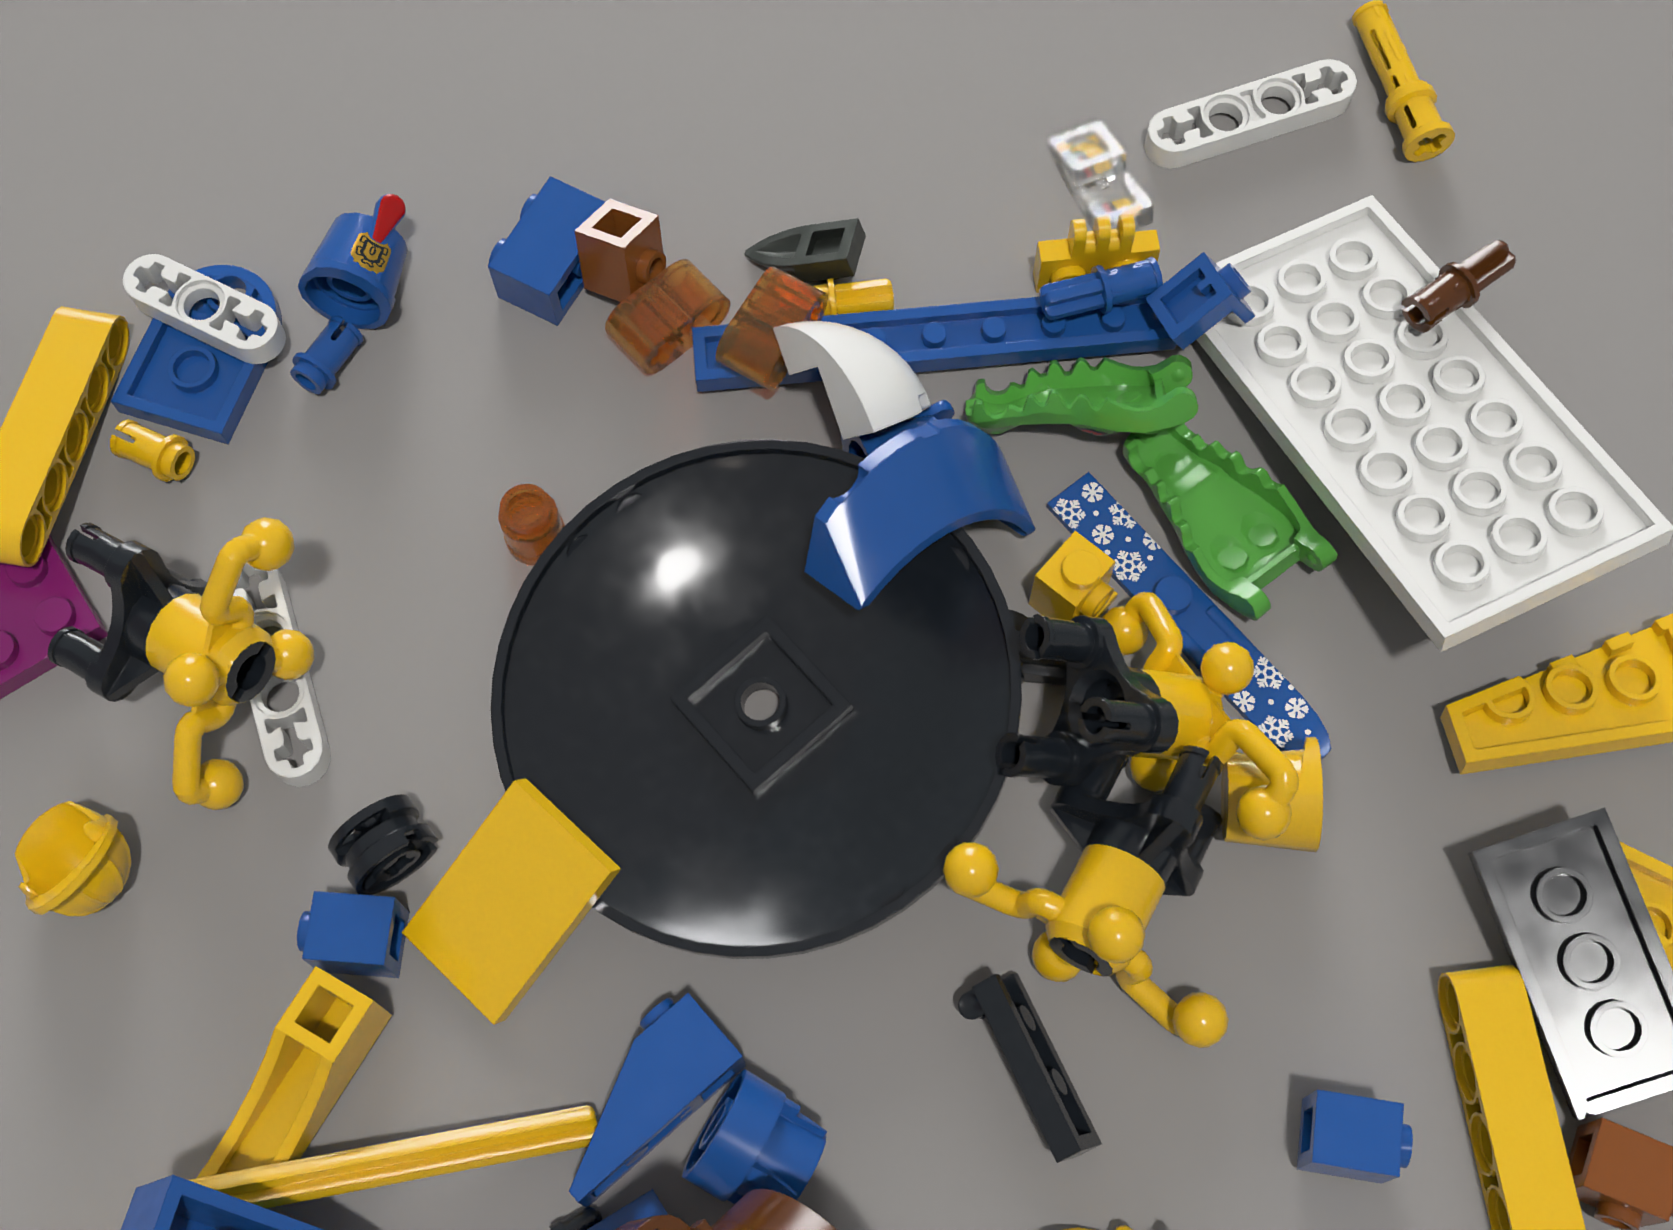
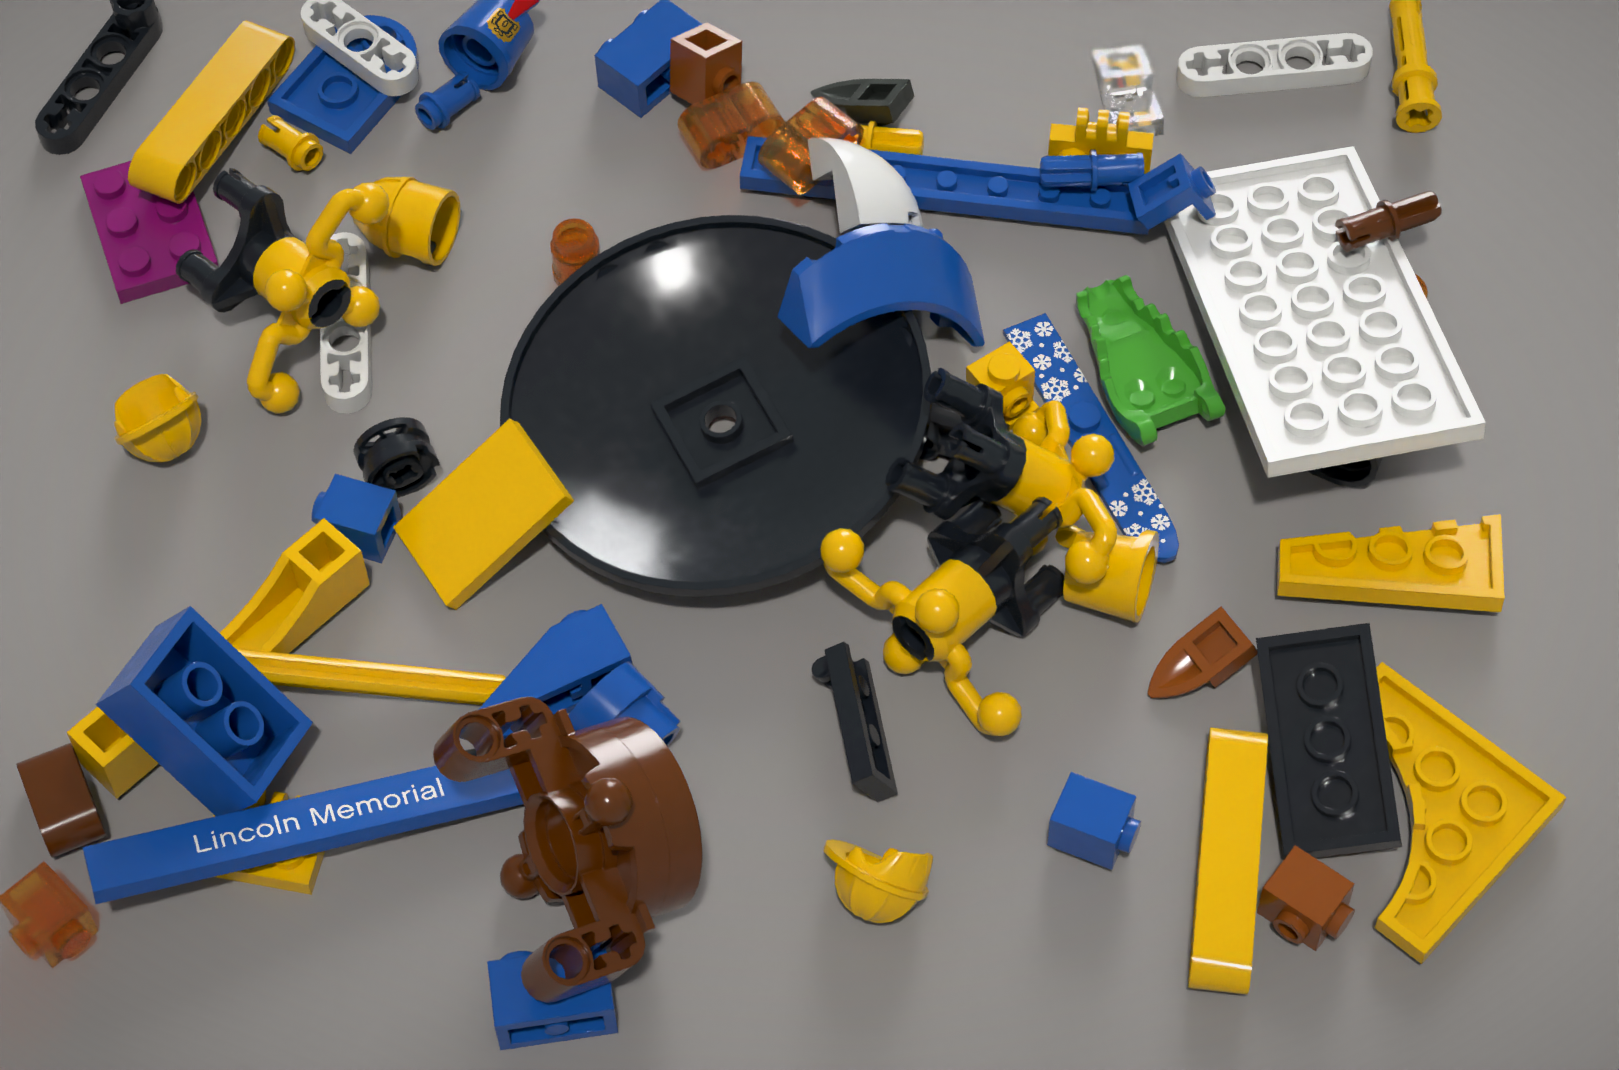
camera: 15 degrees right, 10 degrees down
(323, 519) = (414, 219): none -> yellow helmet
(1091, 398) = (1058, 255): bright green animal -> none
(1402, 878) = (1202, 655): none -> dark orange plate

